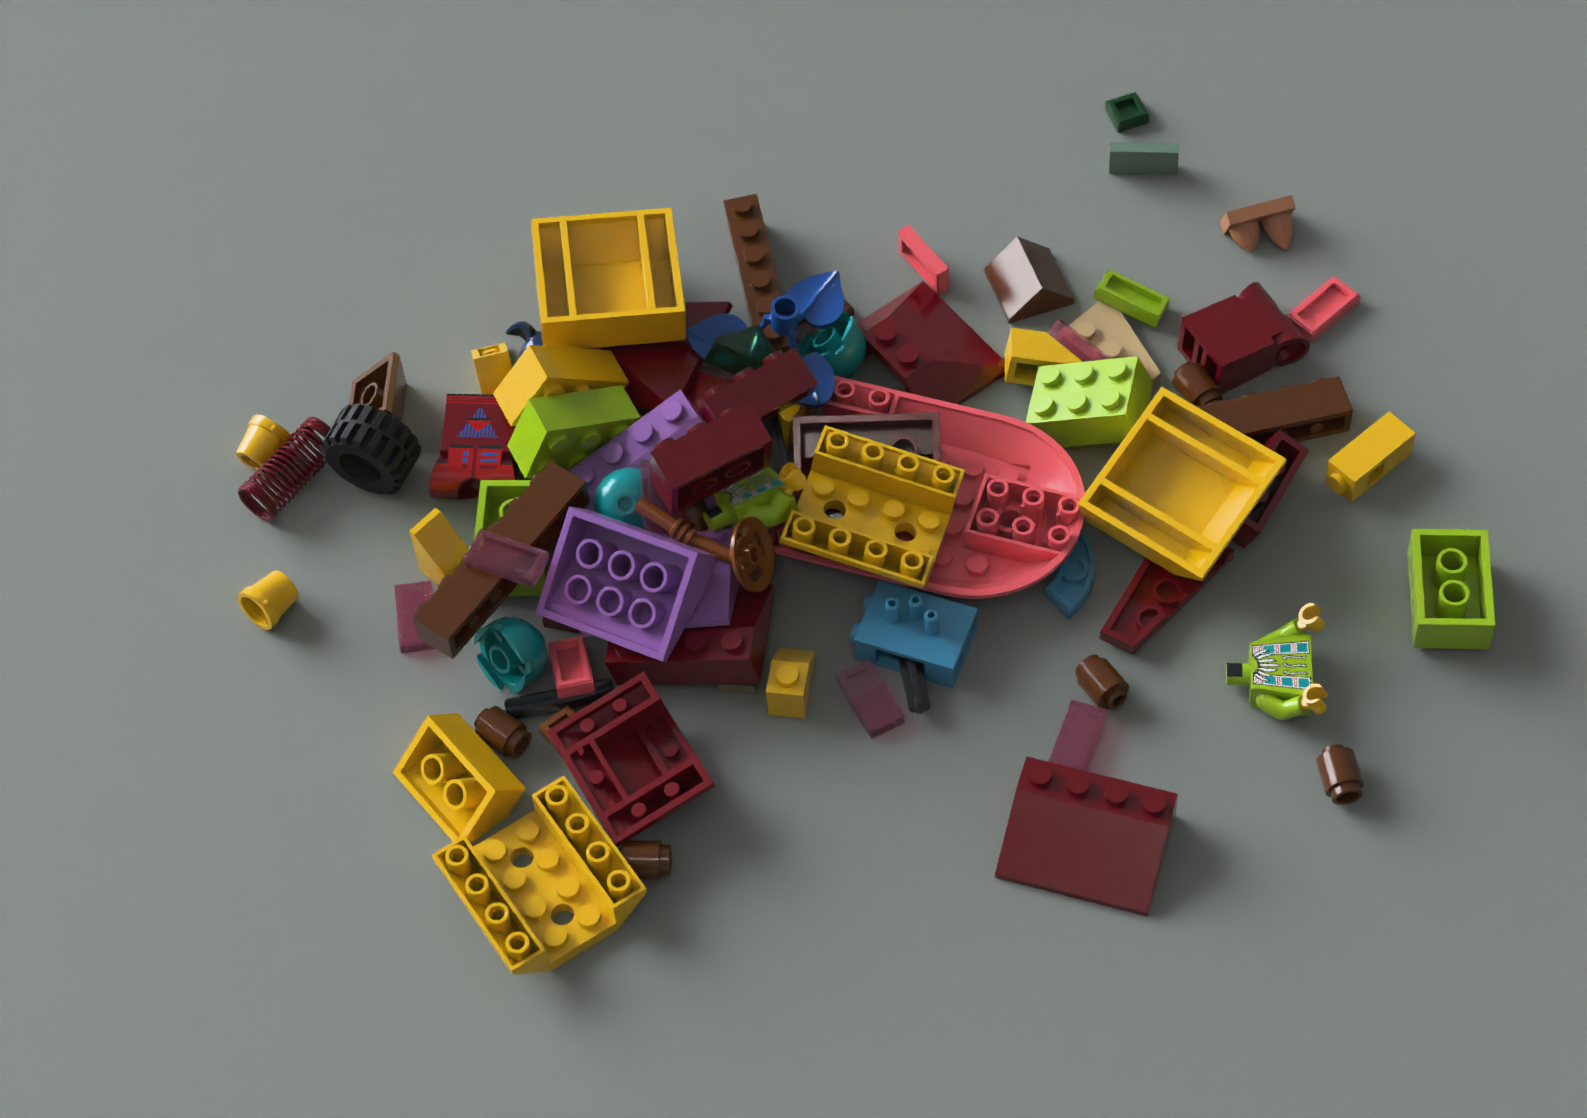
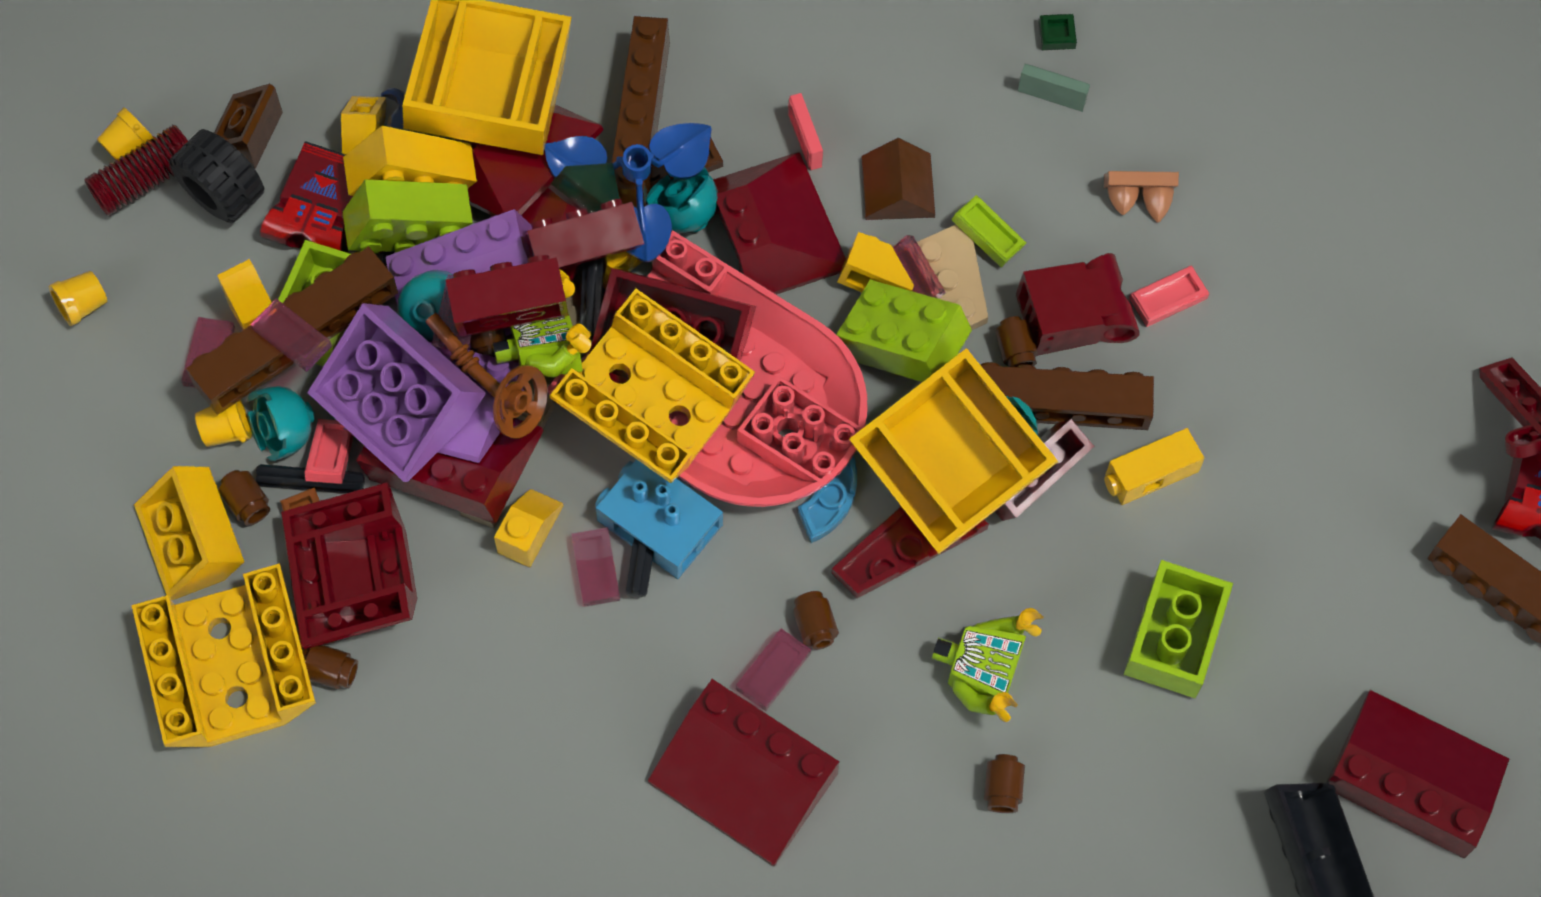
camera: 10 degrees right, 10 degrees up
(457, 674) = (223, 428): none -> yellow piece

